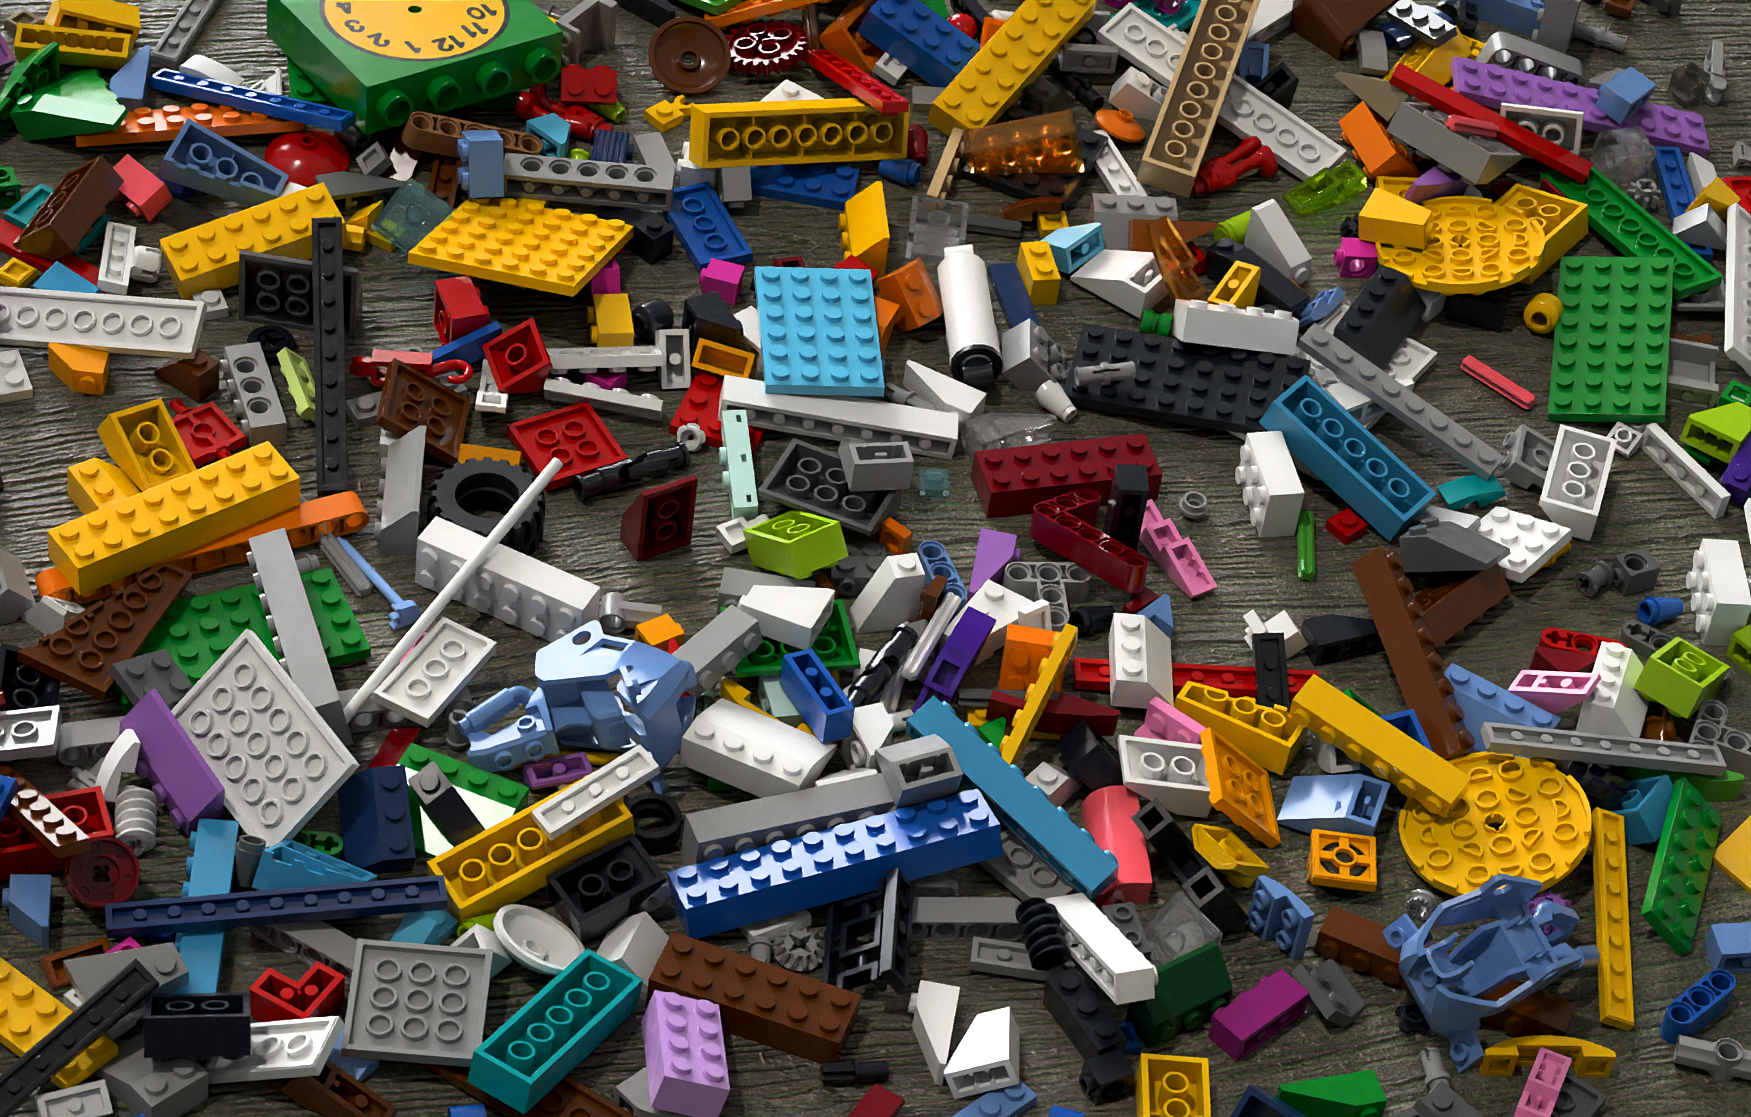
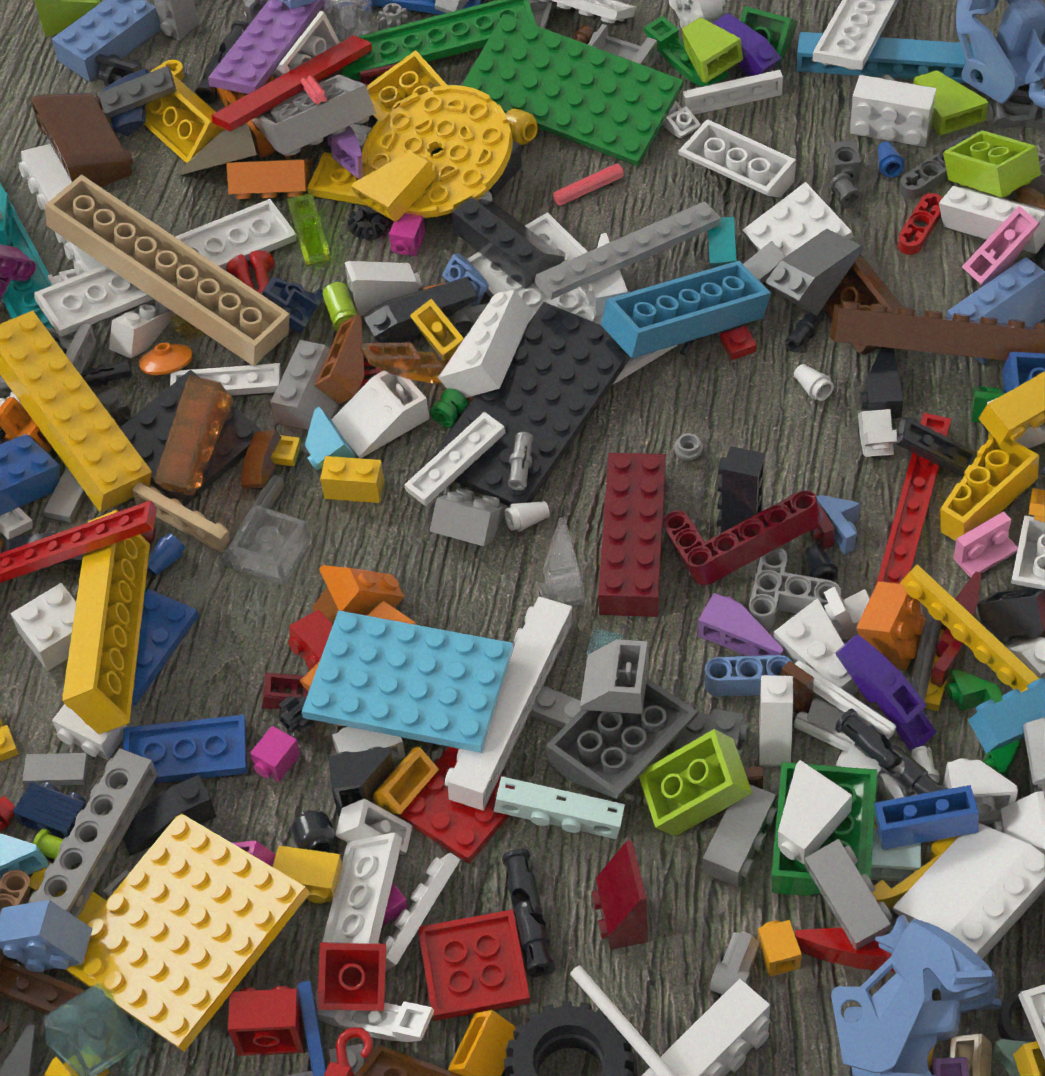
camera: 60 degrees left, 10 degrees up
(691, 429) = (494, 843): white plate -> none
(732, 532) = (641, 831): white plate -> none
(734, 186) = (148, 704): light grey brick -> none
(866, 228) = (254, 603): yellow slope -> none
(895, 536) = (686, 692): orange plate -> none
(900, 396) = (503, 629): light grey axle -> none
(944, 392) = (498, 604): white slope -> none
(969, 318) = (405, 551): white piece -> none
(1011, 294) = (377, 511): dark blue tile -> none
(1090, 330) = (454, 458): none -> white plate
(1138, 662) = (902, 544): white slope -> none
(1175, 554) = (778, 475): bright pink slope -> none
(1222, 188) = (293, 300): none -> dark blue slope
(1270, 484) = (692, 377): white brick -> none
(1279, 84) = (168, 217): black slope -> none
(1306, 545) = (757, 378): bright green axle -> none
(1319, 586) = (814, 382): none -> white cone
(1372, 52) = (142, 143): light grey slope -> none
(1526, 457) = (697, 184): light grey plate -> none
(1531, 58) = (201, 42): light grey beam -> none
(1562, 661) = (952, 244): dark red slope -> none

